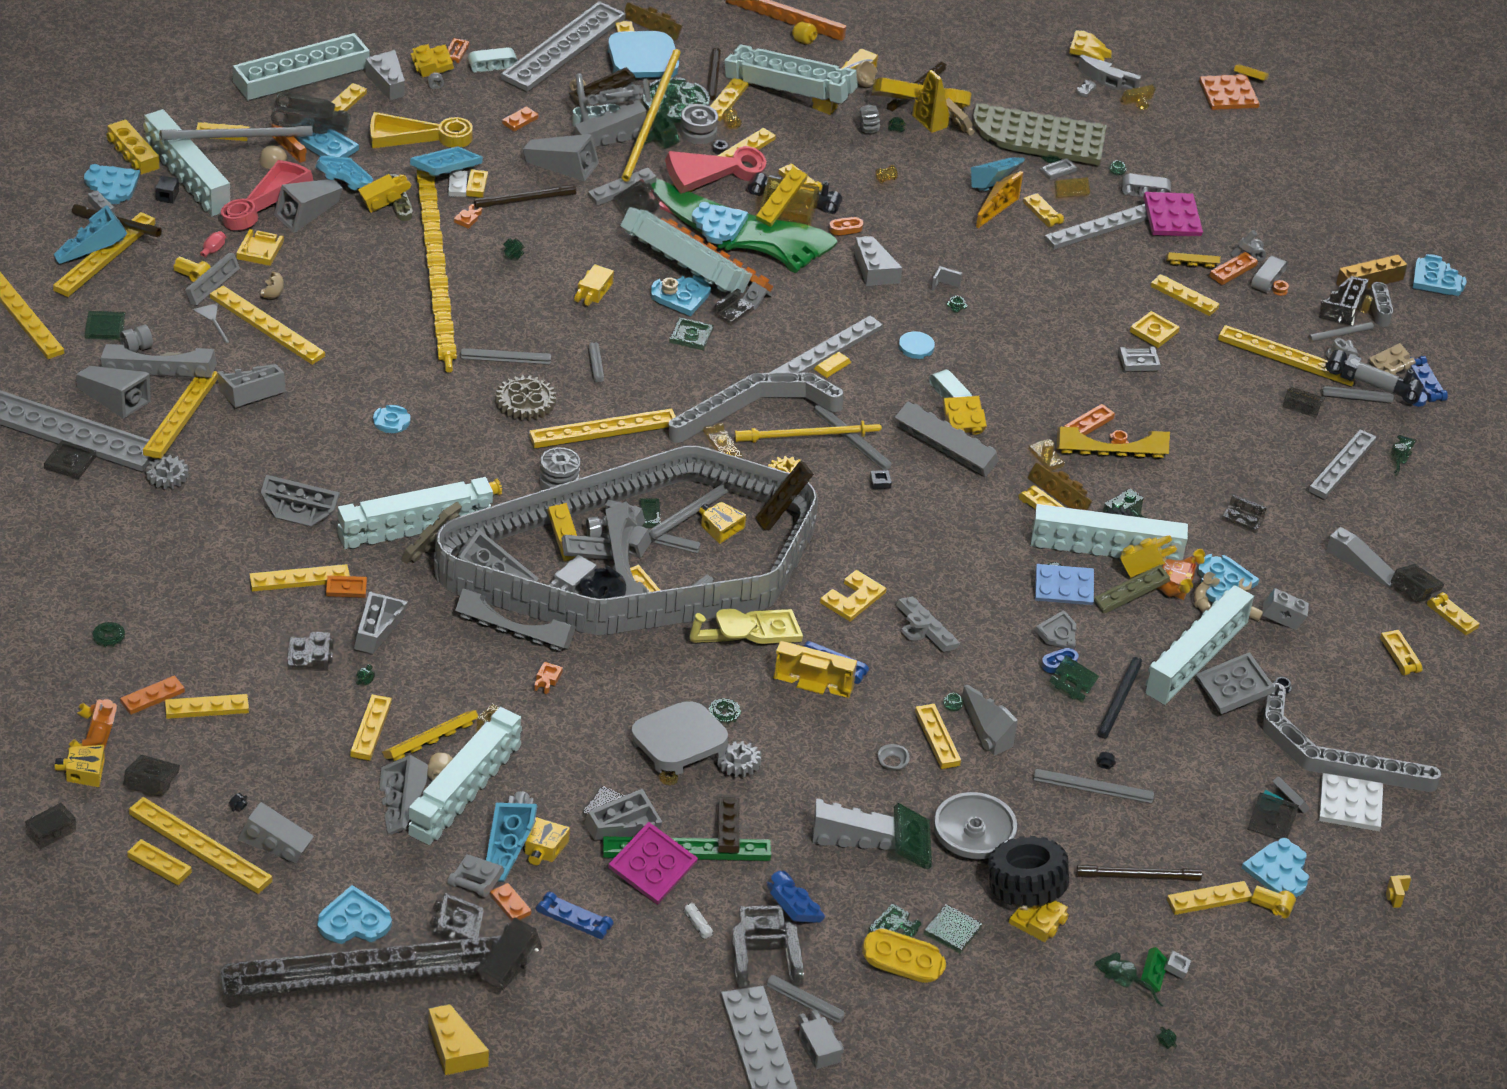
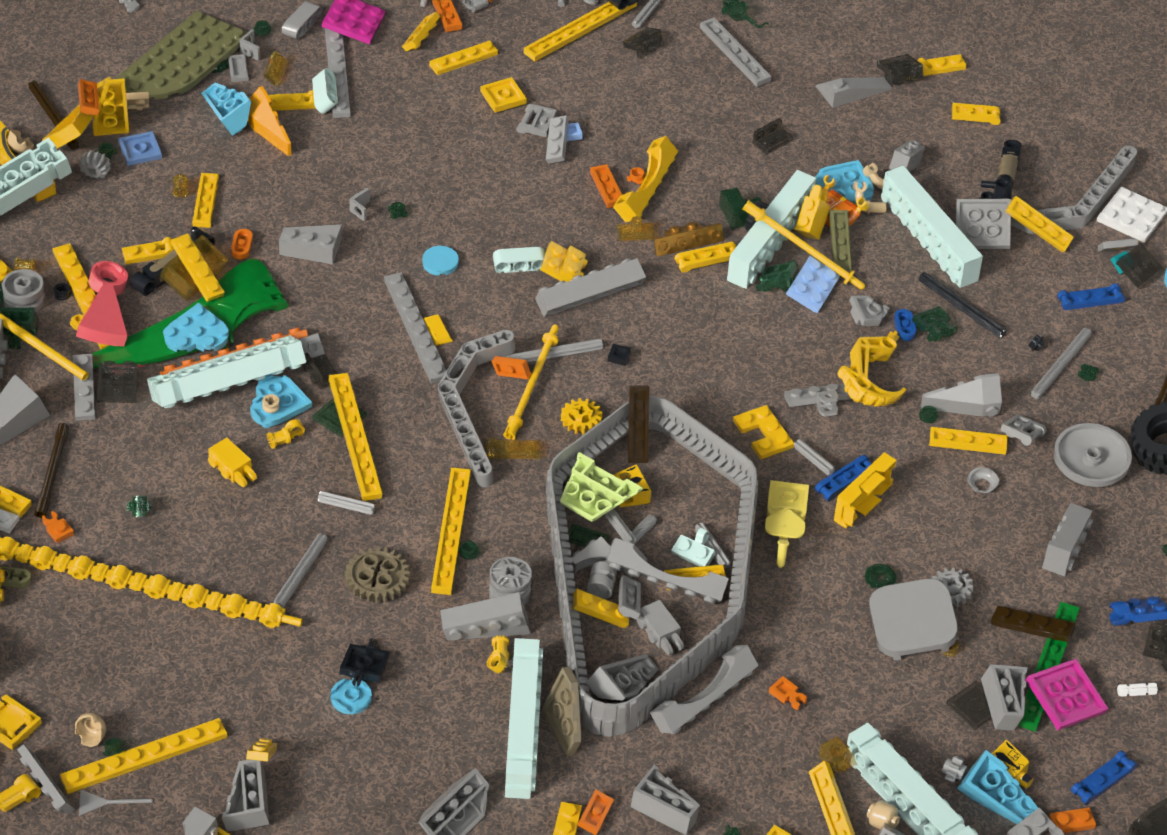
camera: 65 degrees left, 5 degrees up
(264, 304) = (113, 746): none -> clear green plate
(295, 374) = (262, 750): none -> yellow plate
(426, 413) = (364, 662): none -> black plate
(512, 467) = (486, 618): none -> light grey wedge
(589, 444) = (468, 550): none -> clear green plate
(602, 580) = (710, 617): black plate -> none
(646, 306) = (286, 434): none -> yellow connector
(667, 343) = (355, 437): none -> yellow plate
(678, 576) = (694, 550): none -> light aqua plate
(688, 489) = (594, 491): none -> yellowish green wedge
(812, 413) = (511, 367): none -> orange plate
(840, 632) = (814, 457): none -> light grey axle
(884, 194) = (205, 200): none -> yellow tile
(912, 836) = (1090, 501): clear green tile -> none
(915, 81) = (88, 97): none -> orange plate
(916, 142) = (140, 148): none -> medium blue tile
(979, 765) = (1018, 427): none -> light grey plate
(991, 629) = (856, 376): none -> yellow piece
(1056, 555) = (776, 276): none -> clear green plate
(1071, 220) = (325, 91): none -> light aqua beam
(1085, 163) = (248, 48): none -> light grey bracket
(1094, 808) = (1088, 372): none -> clear green plate
(1096, 506) = (760, 215): none -> yellow bar
(1121, 374) = (557, 139): none -> light grey plate
(1141, 383) = (574, 132): none -> light blue plate
(1203, 791) = (1091, 297): none -> blue plate
(1262, 720) = (1039, 224): none -> yellow plate
(1347, 685) = (1007, 171): none -> black piece

